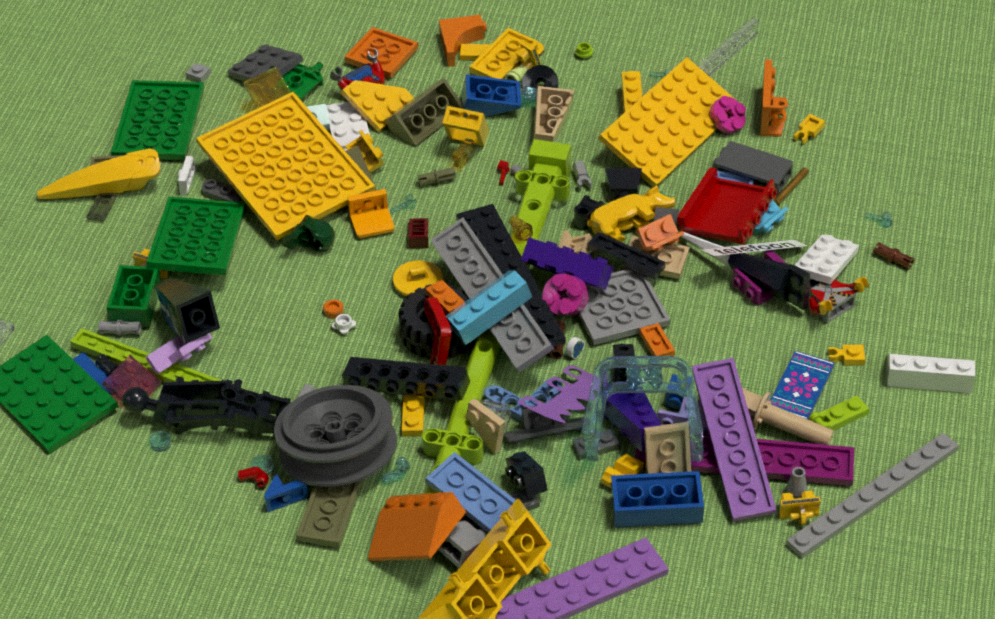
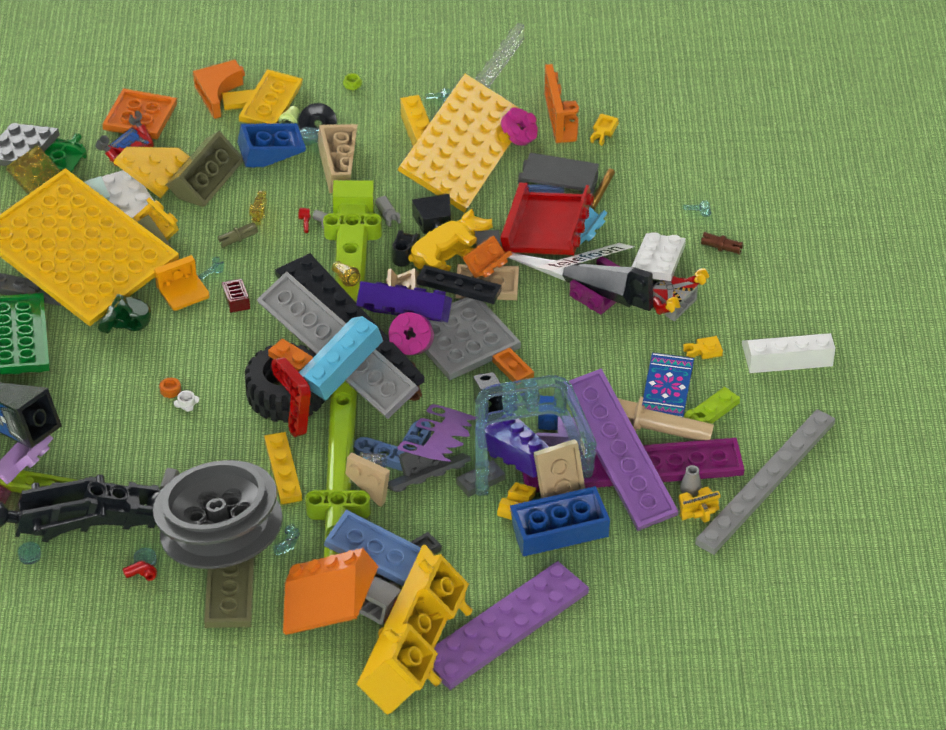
camera: 15 degrees left, 0 degrees up
(284, 495) = (176, 585): blue slope -> none
(407, 378) = (273, 444): black brick -> none
(415, 275) = (246, 340): yellow shield -> none
(460, 128) = (251, 180): yellow window -> none
(526, 474) = (422, 519): black brick -> none
(530, 54) = (300, 93): yellow hips -> none
(575, 347) = (432, 385): tile -> none

